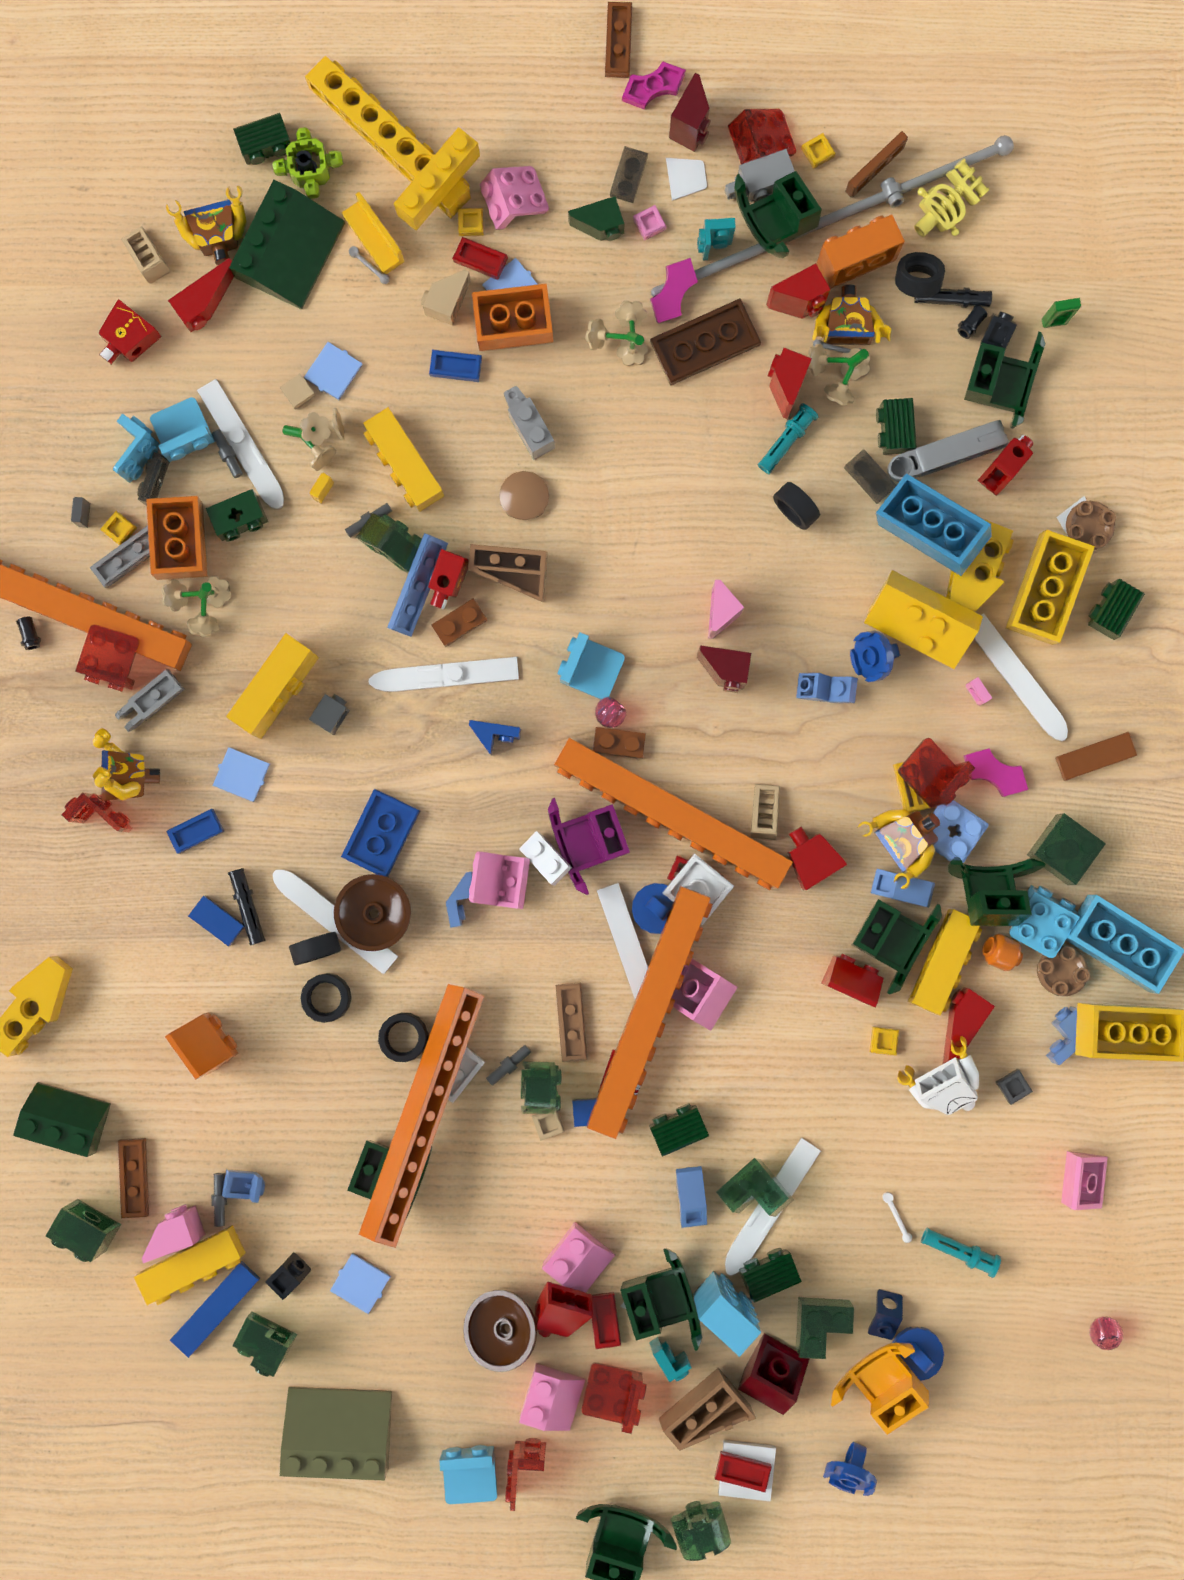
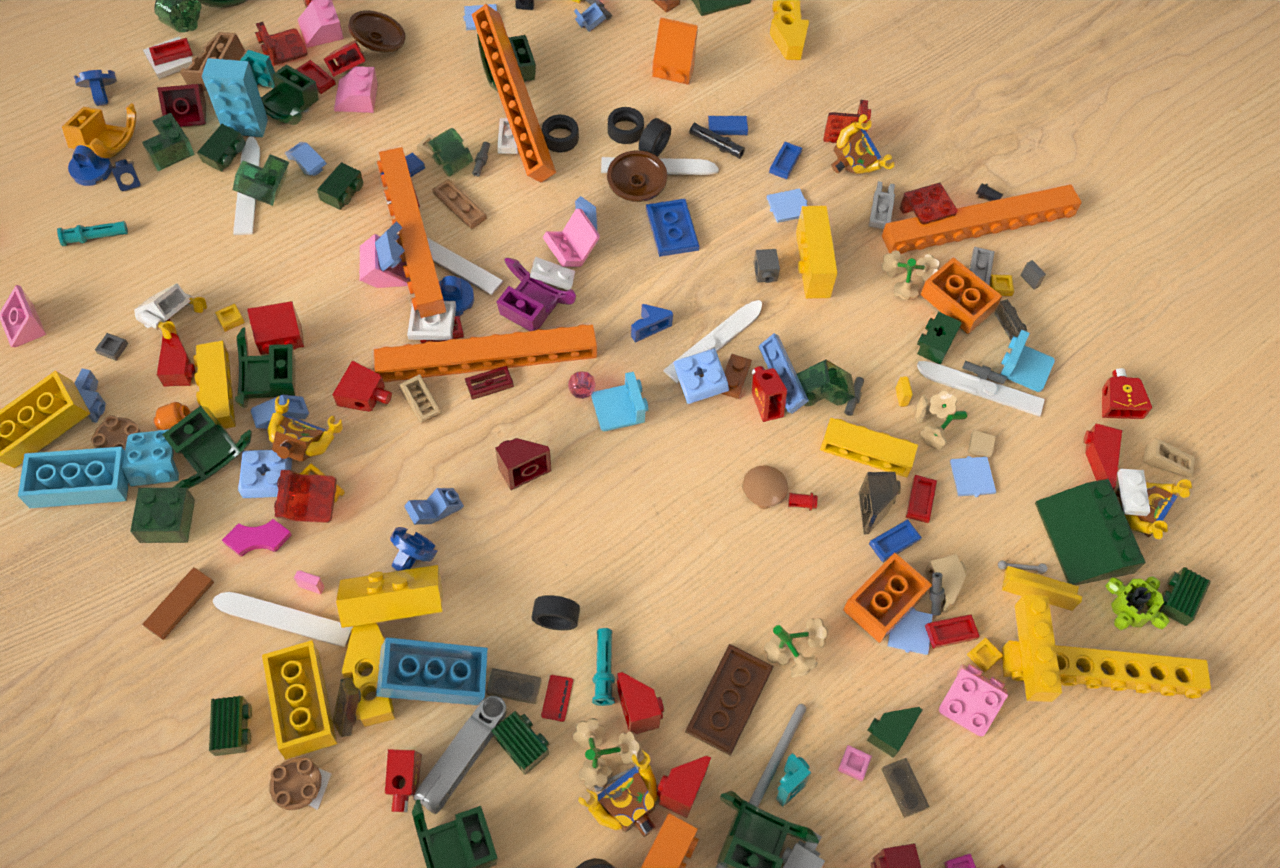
camera: 135 degrees right, 25 degrees down
(140, 450) = (1044, 335): medium azure bracket -> none
(219, 240) = (1133, 492): none -> white plate
(398, 384) = (921, 499): none -> red tile
(445, 400) = (877, 497): none -> clear smoke slope
(470, 286) = (936, 593): none -> dark grey bar
(504, 456) = (803, 500): none -> red pin
(510, 632) = (699, 388): none -> light blue brick
(512, 567) = (731, 426): medium nougat wedge -> none
(528, 423) = (806, 532): light grey hinge -> none
(619, 742) = (558, 375): dark orange plate -> none
(679, 279) = (791, 727): dark pink tile -> none
(685, 176) = (860, 829): white sticker -> none
(695, 984) = (388, 249): none -> medium blue slope
(710, 790) = (491, 385): none -> dark red tile
(723, 609) = (554, 499): bright pink slope -> none
(840, 446) = (557, 698): none -> red sticker
(888, 1198) = (166, 234): white hinge -> none
(1018, 548) = (346, 706): none -> clear smoke plate

